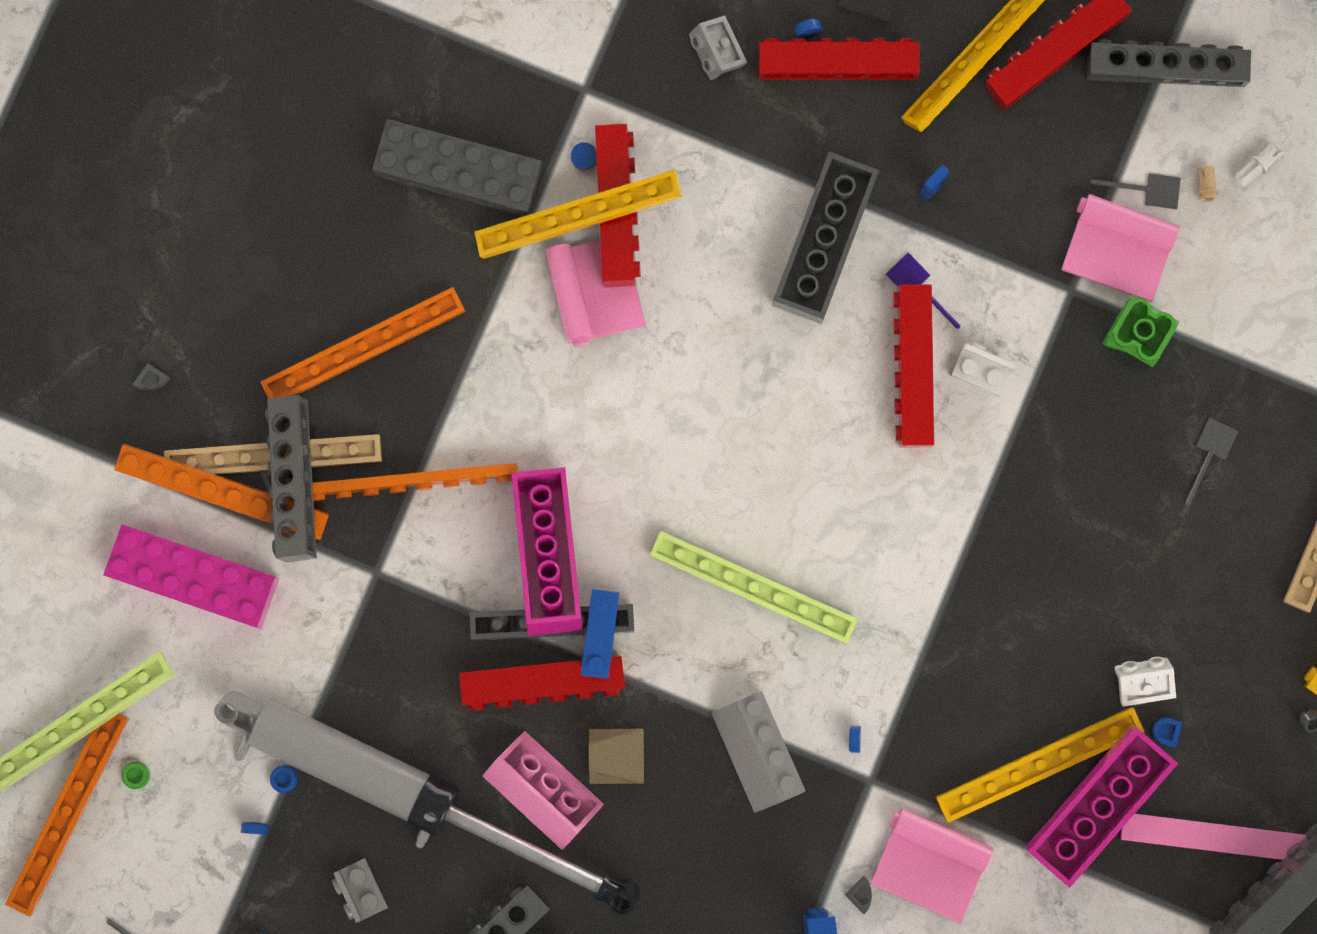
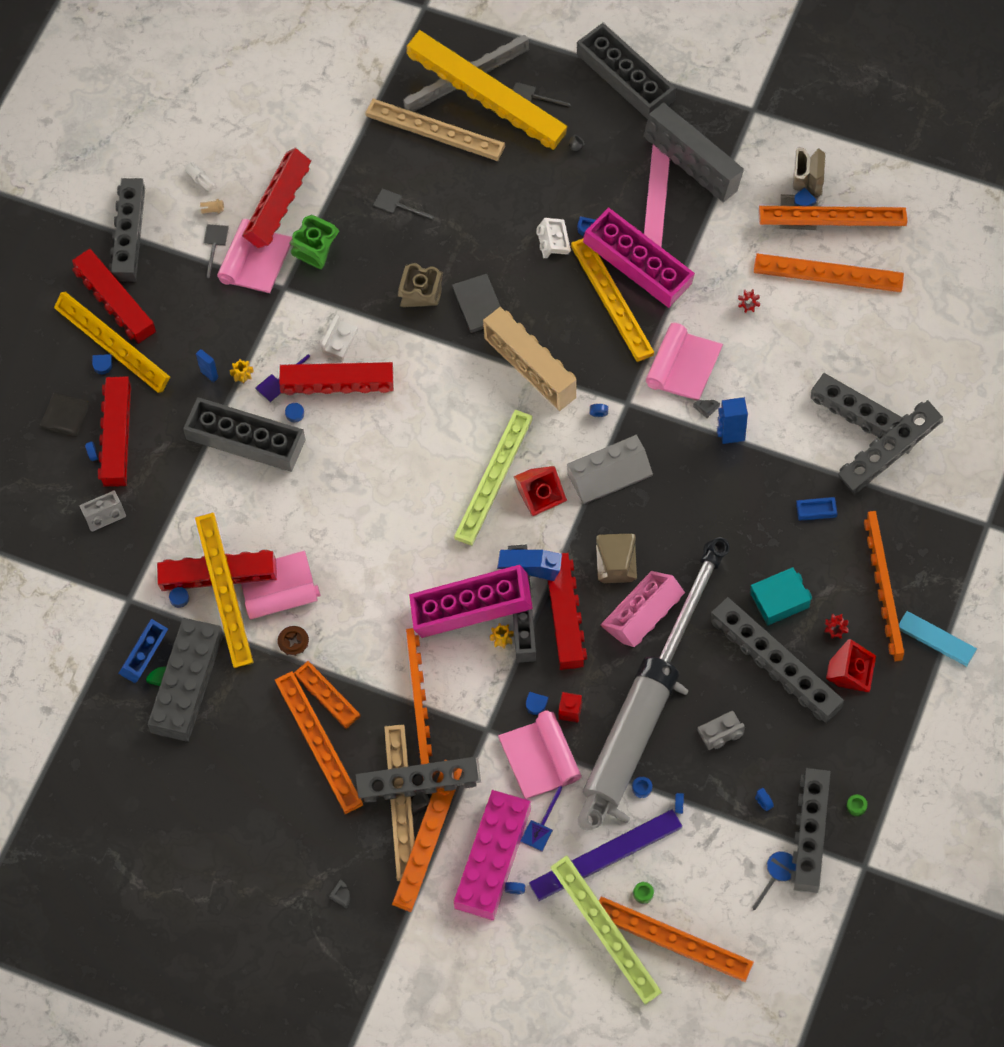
camera: 85 degrees left, 20 degrees down
(146, 605) = (514, 888): none -> blue tile
(193, 734) = (611, 852): none -> dark purple tile
(224, 636) = (538, 834): none -> piece
(331, 642) = (540, 756): none -> bright pink door
(397, 685) = (570, 707): none -> red brick
(409, 639) = (536, 703): none -> blue tile
(433, 357) = (327, 694): none -> orange tile
(467, 131) = (156, 676): none -> green tile
(498, 110) = (143, 651): none -> blue brick
(501, 589) = (501, 641): none -> yellow gear
(509, 299) = (290, 633): none -> reddish brown gear
(730, 651) = (540, 489): none -> red slope
(865, 308) = (294, 412): none -> blue tile
(935, 226) = (245, 368): none -> yellow gear
(935, 641) = (530, 358): none -> tan brick
(950, 37) = (102, 363): none -> blue tile
(1038, 570) = (476, 300): none -> dark grey tile
(1060, 485) = (420, 286): none -> dark tan piece
(1214, 276) = (277, 198): none -> red brick

